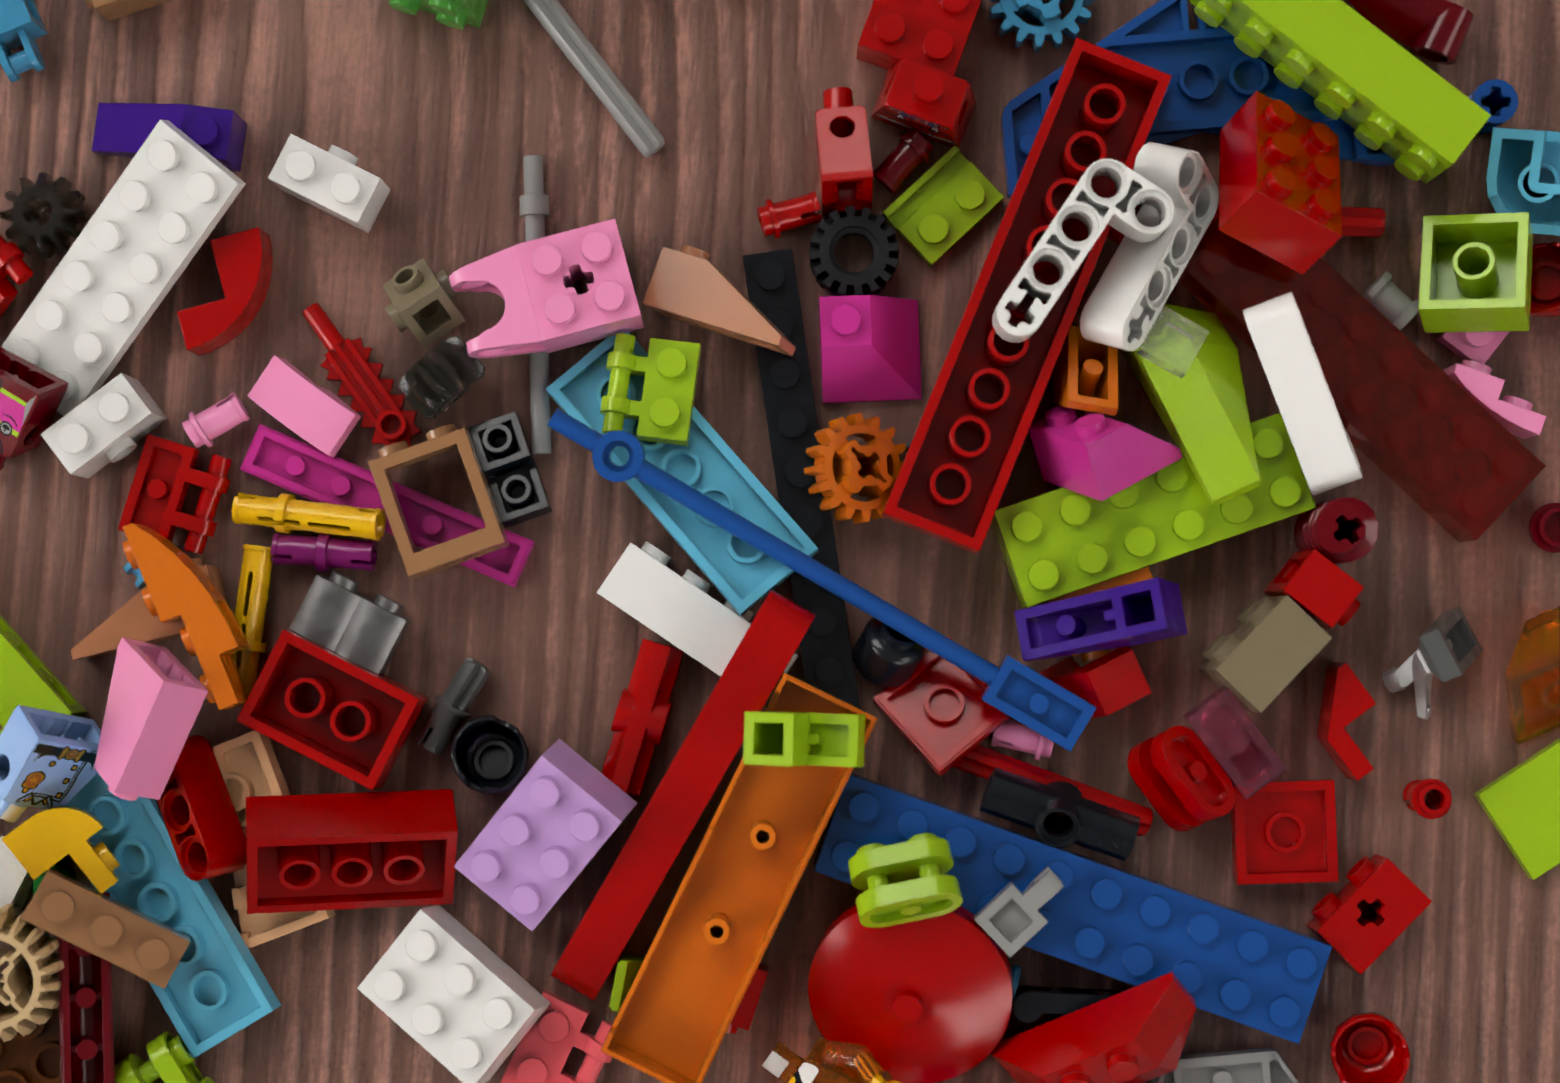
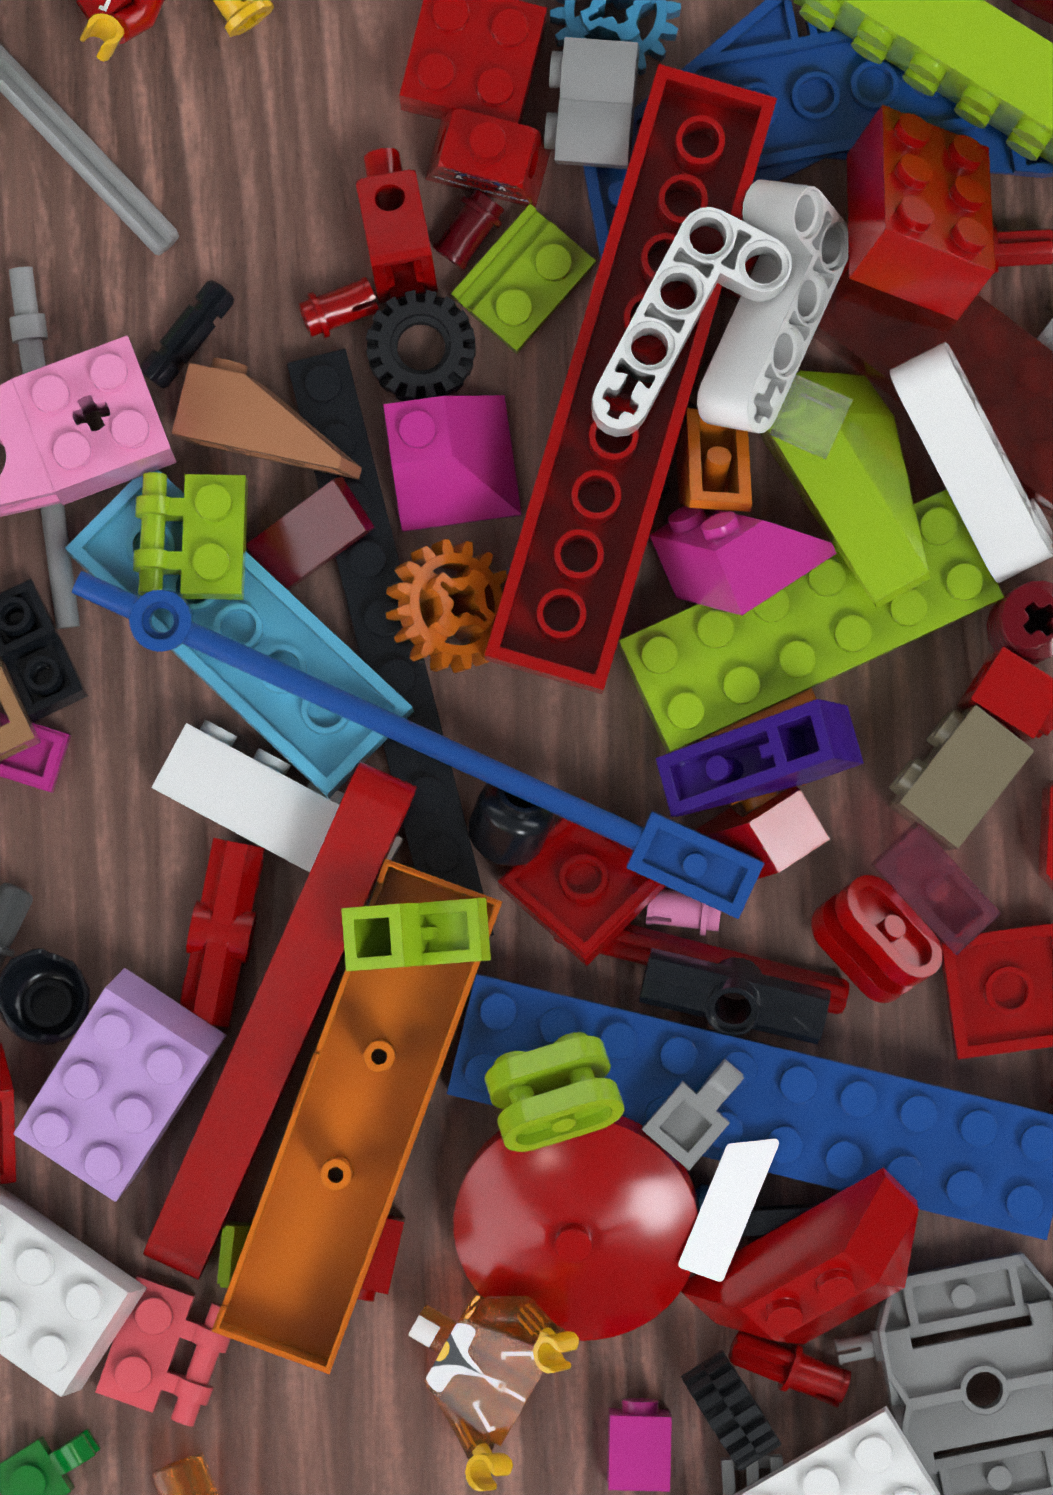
camera: 20 degrees left, 0 degrees up
(663, 223) = (187, 334): none -> black axle
(748, 397) = (311, 534): none -> tile
(1018, 66) = (594, 103): none -> light grey brick
(1037, 989) = (727, 1207): none -> white sticker

